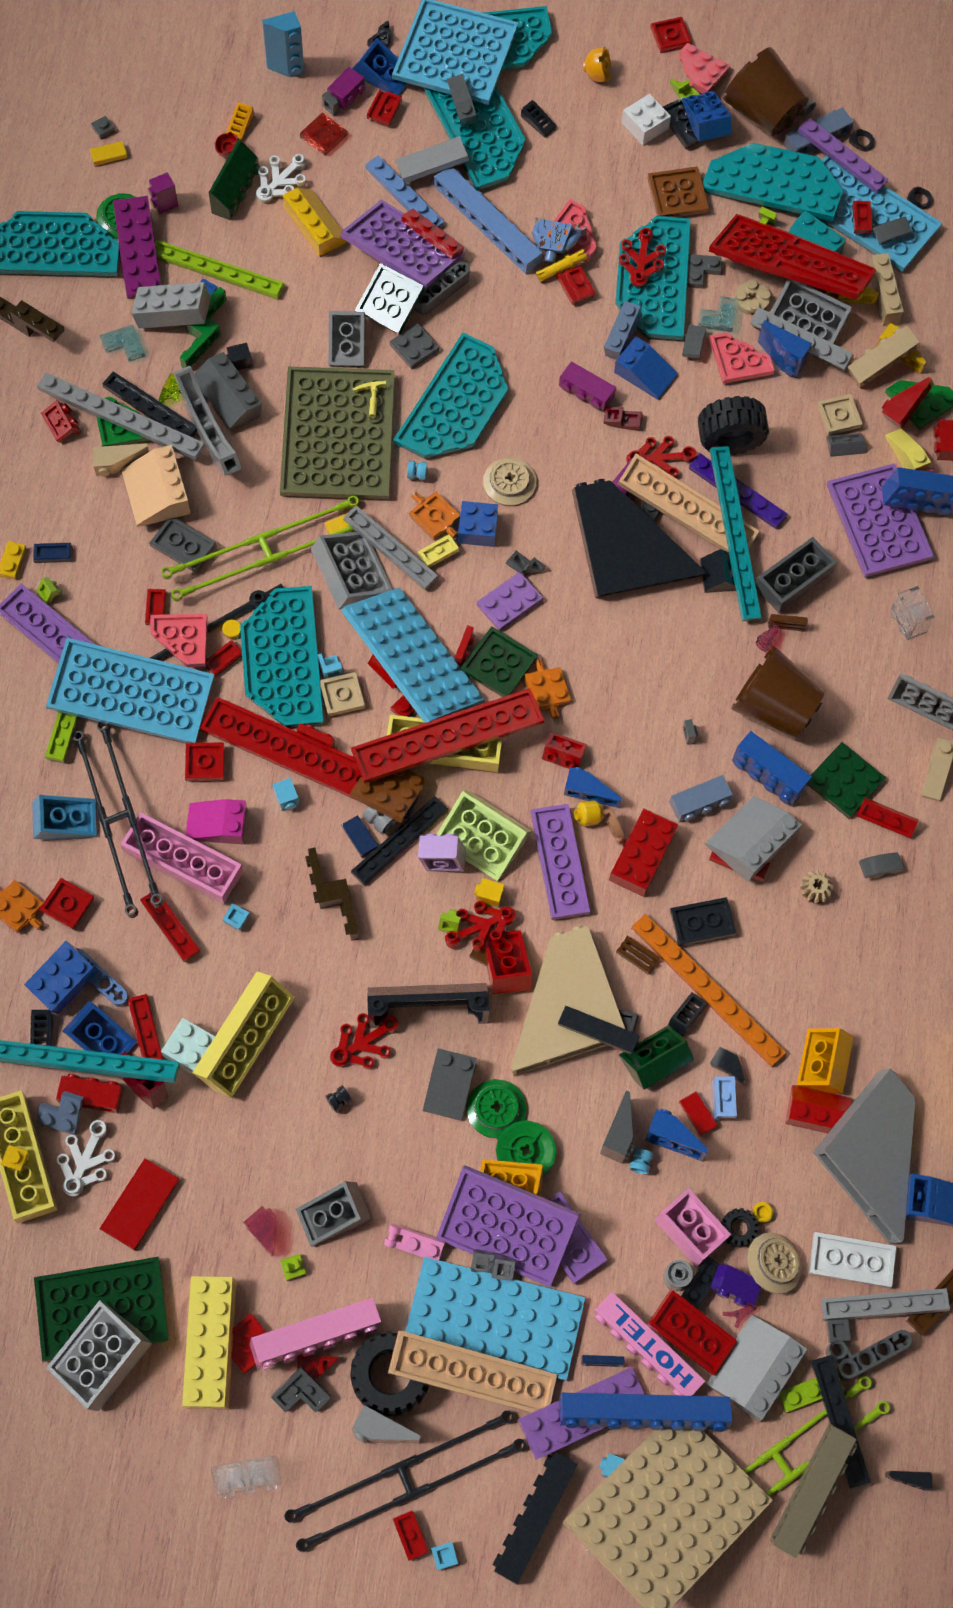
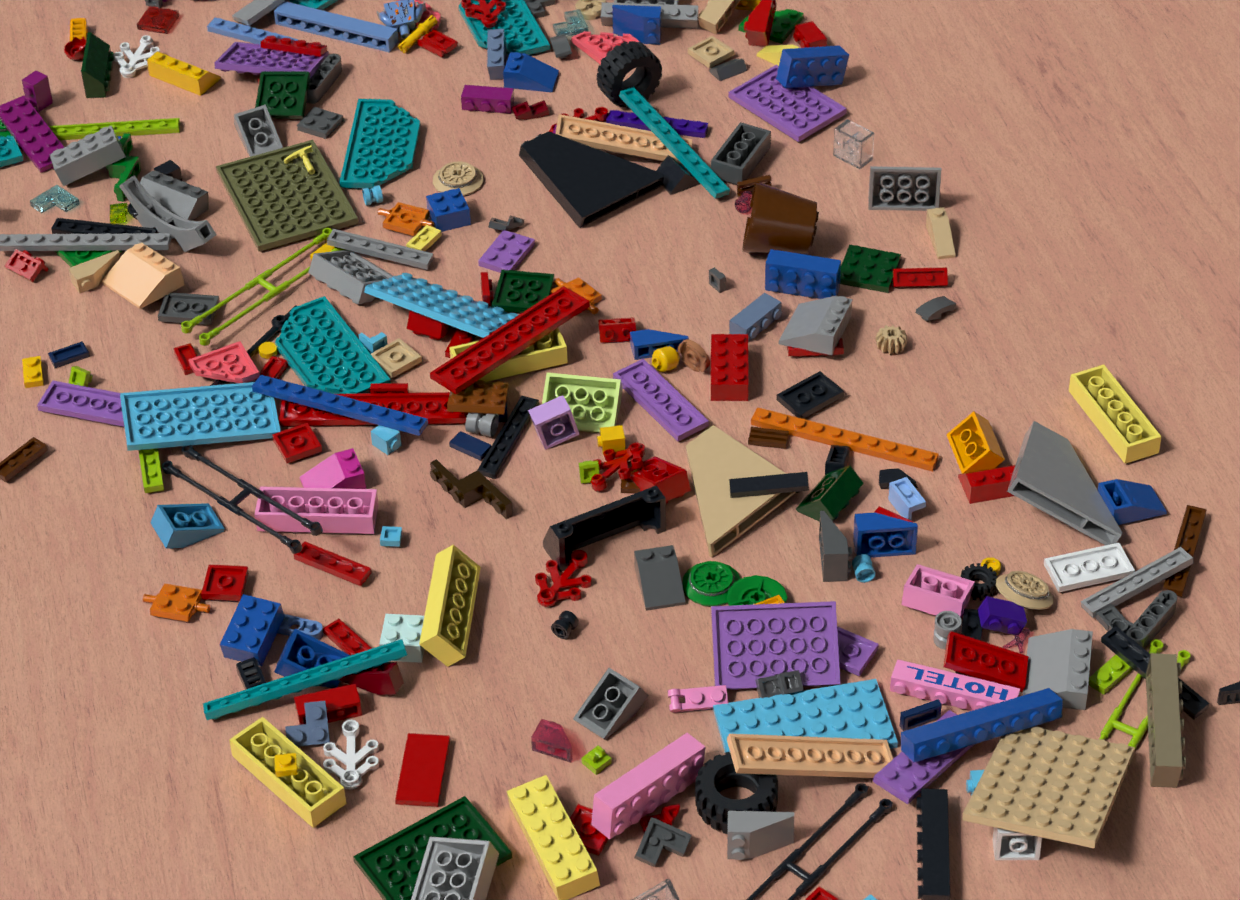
camera: 20 degrees left, 25 degrees down
(259, 740) = (340, 405): none -> blue plate

